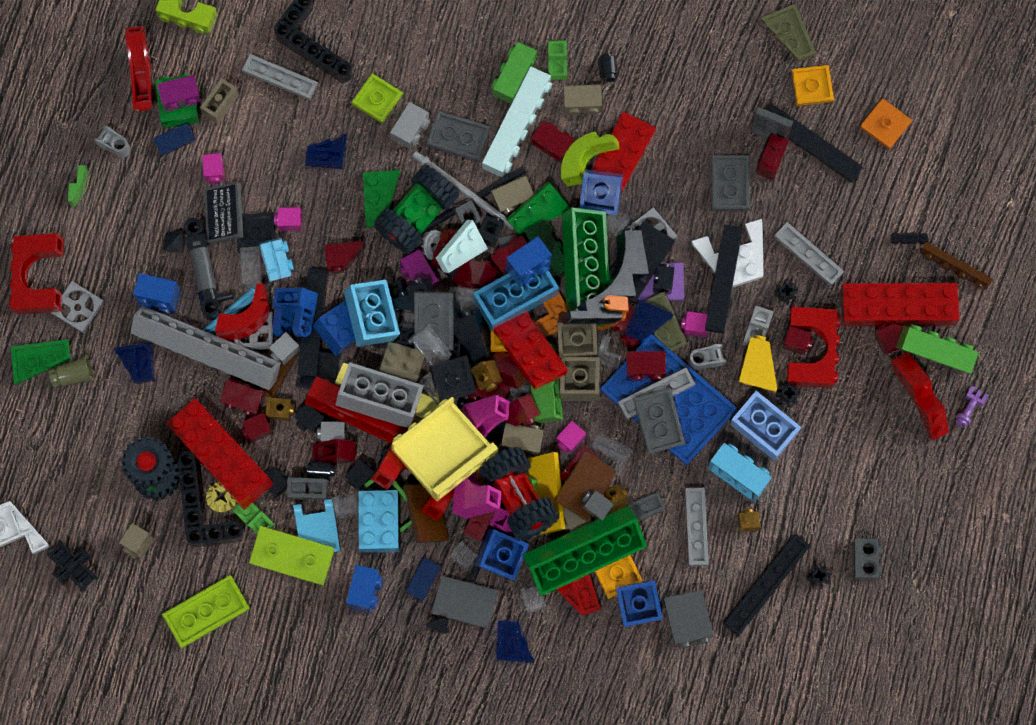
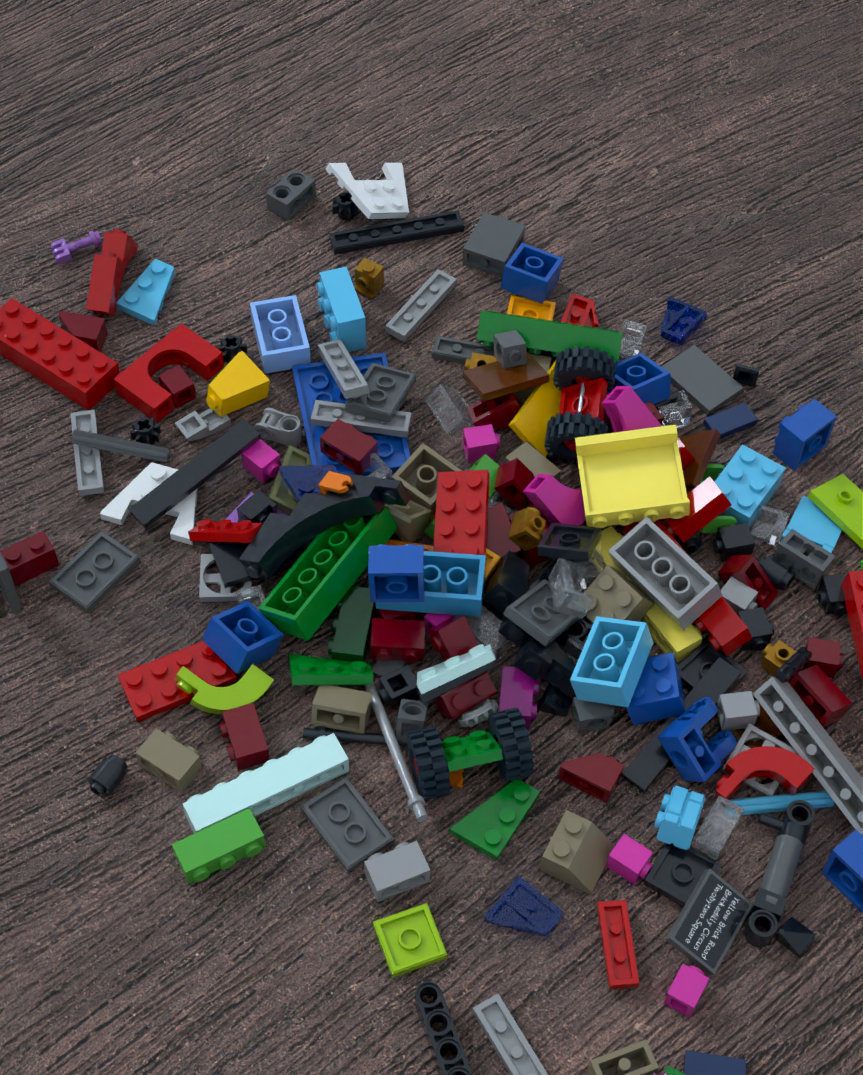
camera: 145 degrees left, 20 degrees down
(265, 169) = (617, 944): none -> red plate
(266, 394) = (793, 664): none -> black axle
(320, 203) = (577, 852): none -> dark tan slope
(557, 60) = (156, 831): bright green slope -> none
(670, 251) = (224, 531): none -> red plate
(695, 416) = (343, 369): none -> light grey plate
(790, 269) = (120, 445): none -> dark grey axle
(800, 598) = (375, 197): none -> white wing
(887, 404) = (147, 293): none -> medium azure wing
(937, 349) = (58, 290): bright green brick -> none

